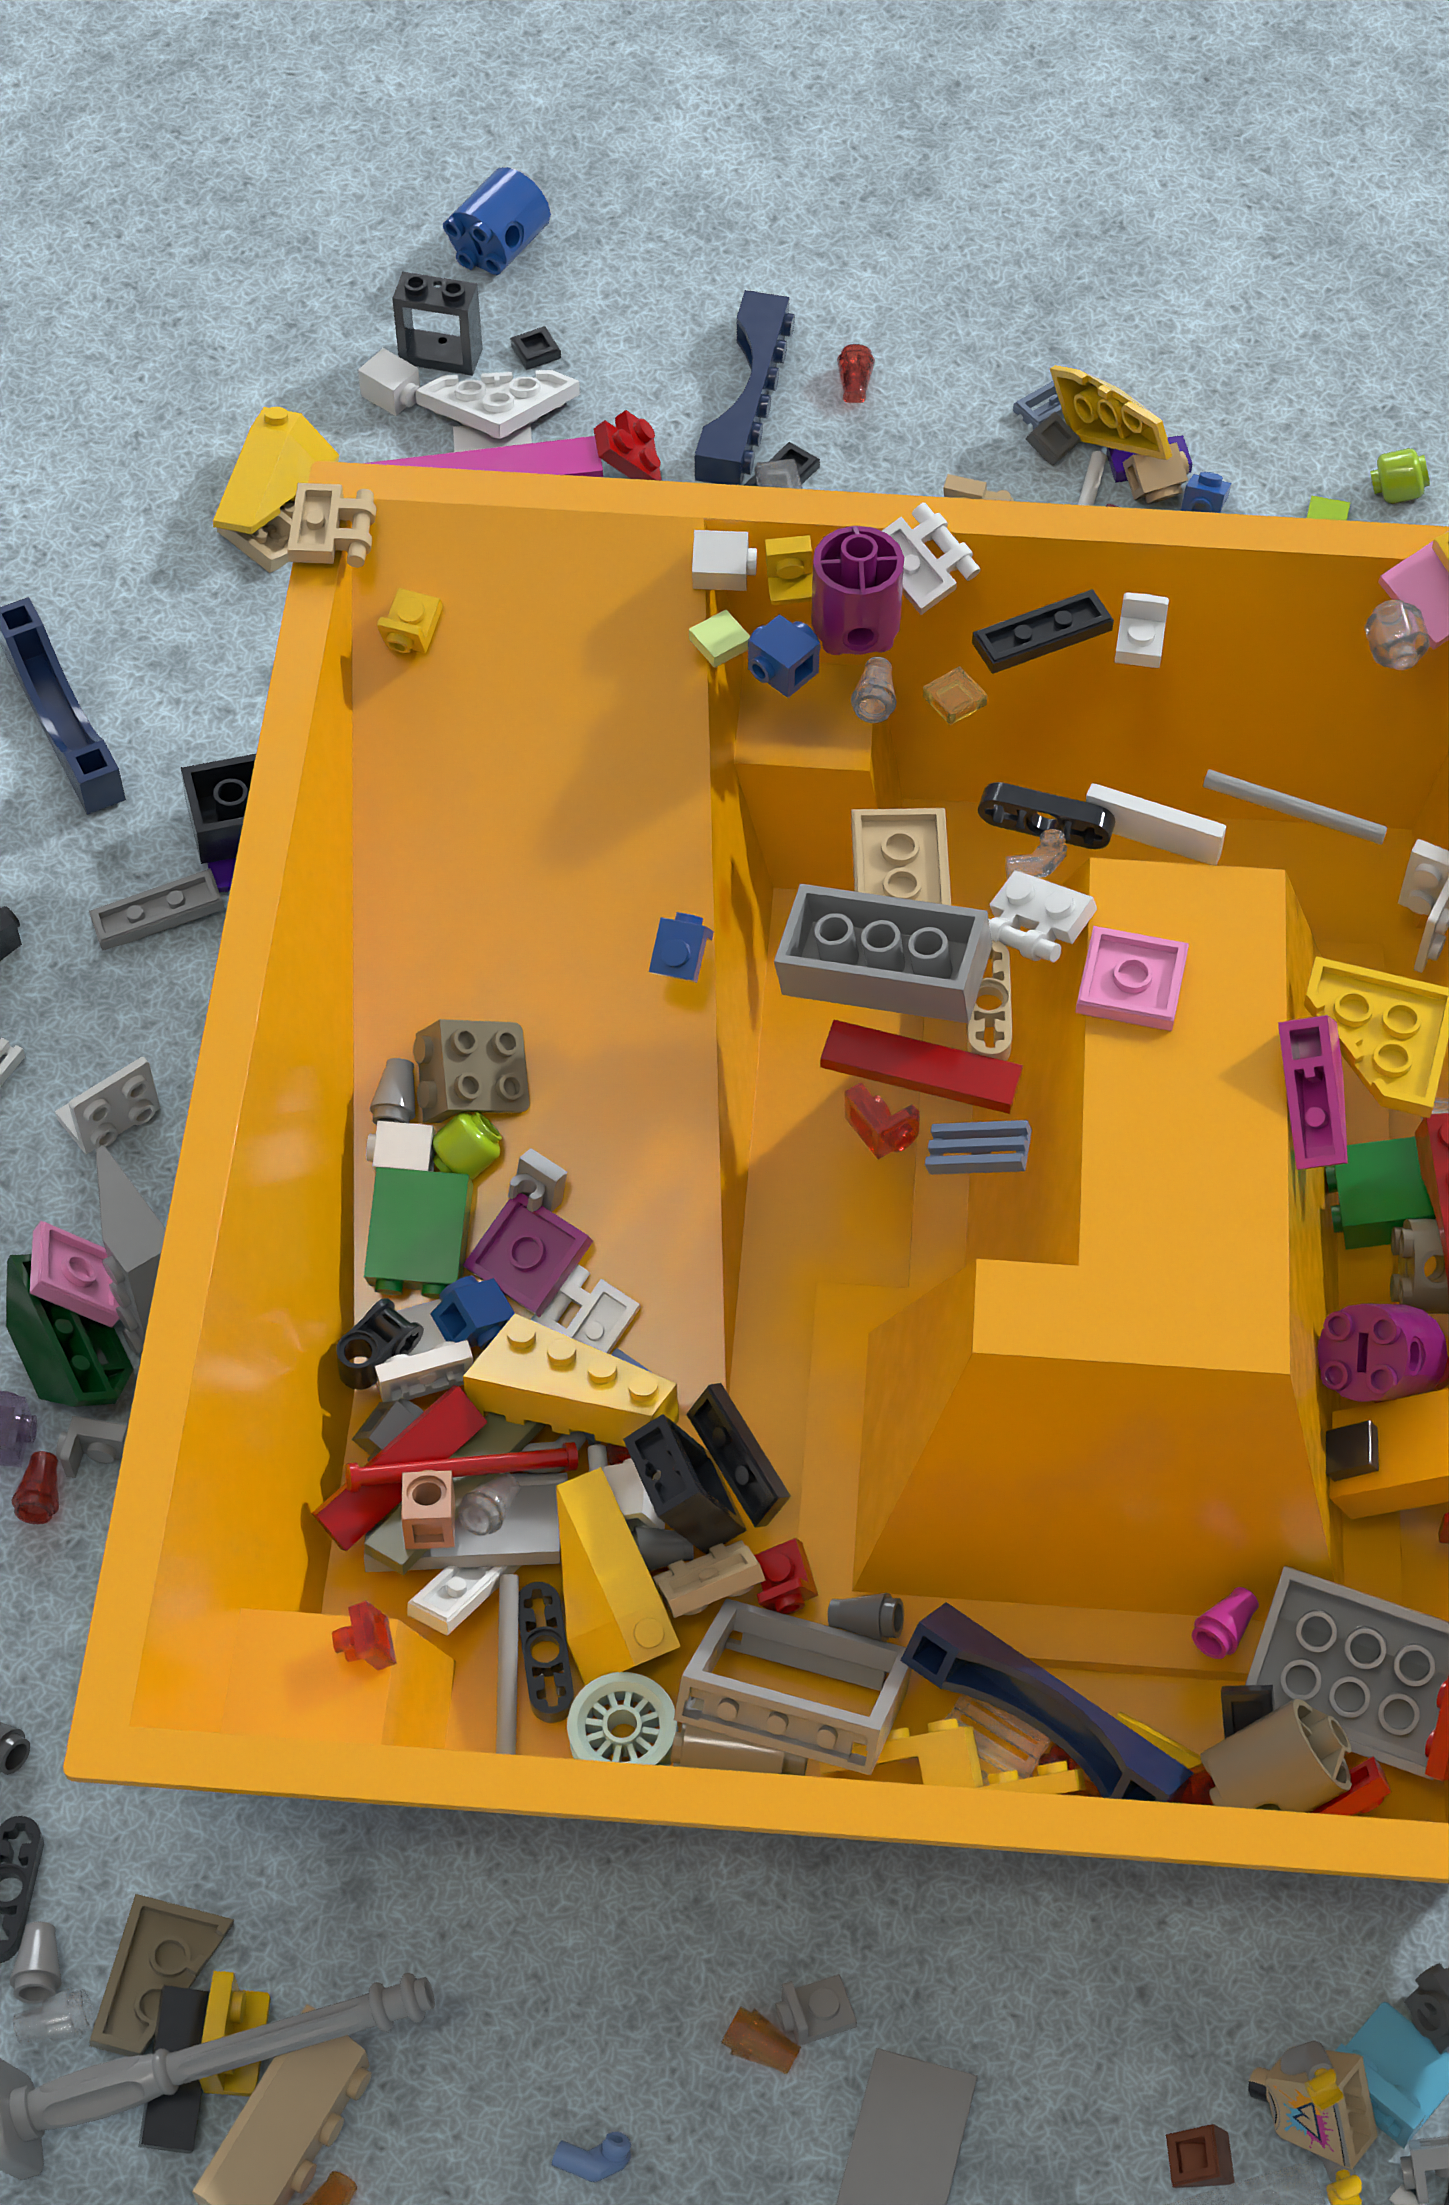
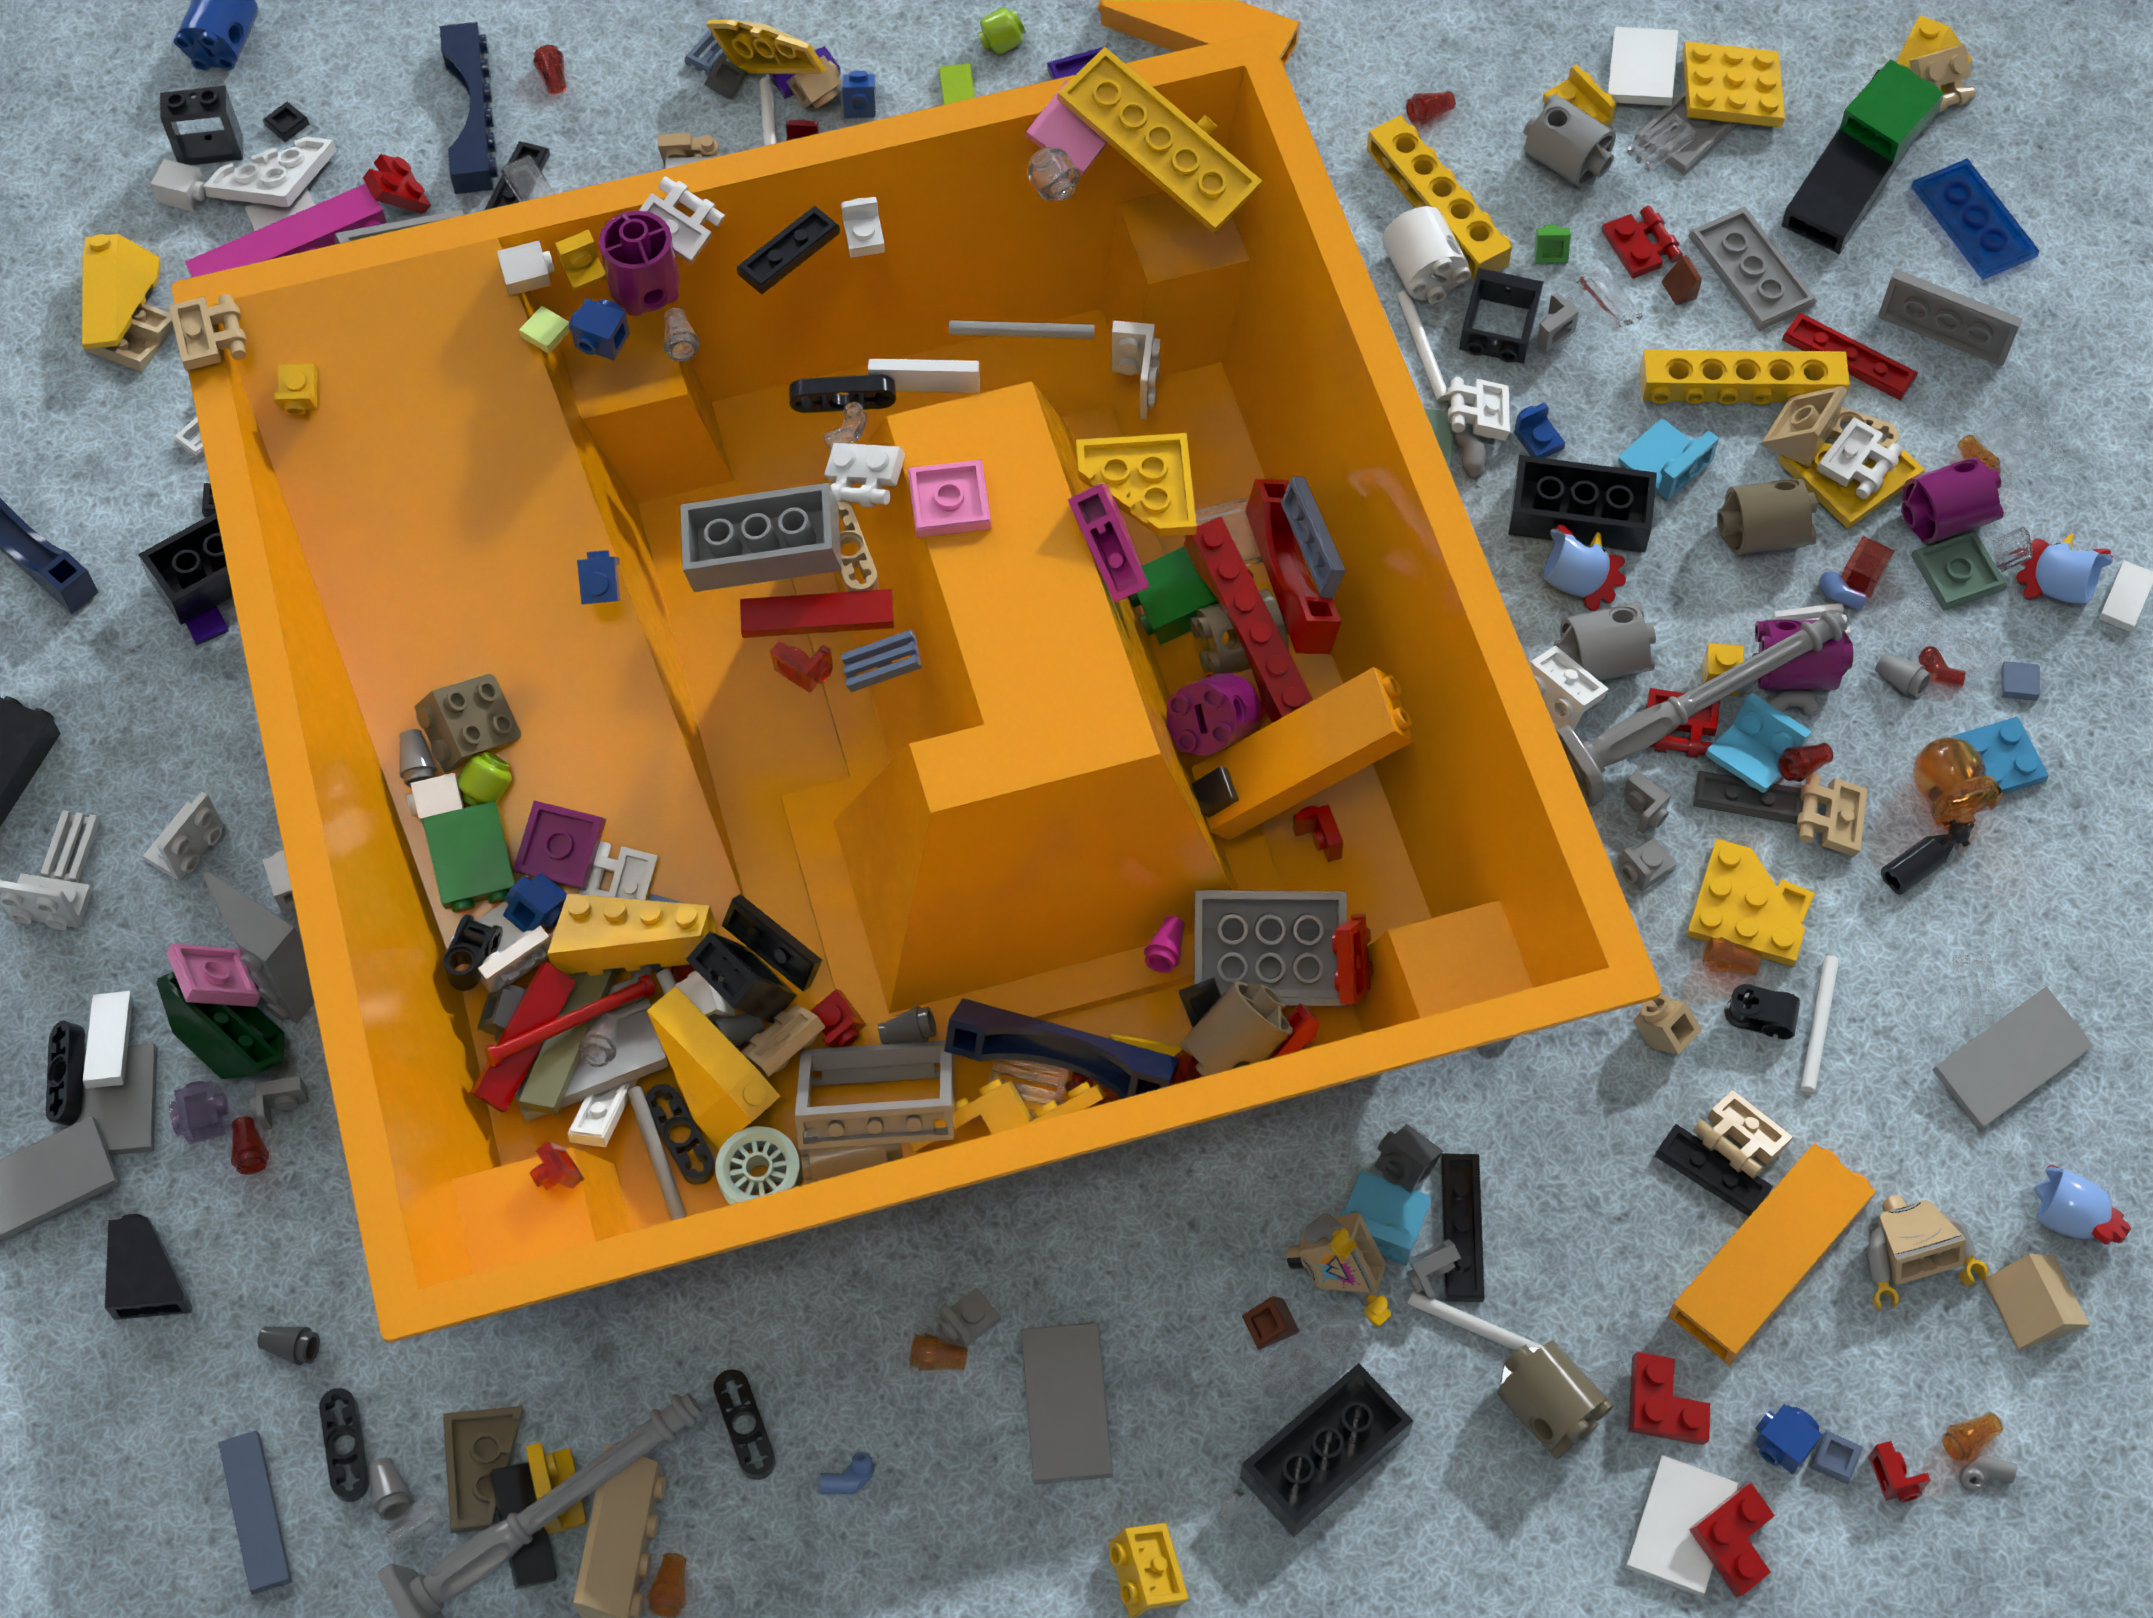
camera: 20 degrees left, 5 degrees up
(156, 910) = (159, 672): light grey tile -> none
(428, 1509) = (558, 1060): nougat brick -> none
(503, 2078) = (725, 1402): none -> black beam
(539, 1181) = (550, 788): light grey tile -> none
(901, 853) = (745, 457): tan tile -> none
(955, 695) = (740, 320): clear yellow tile -> none

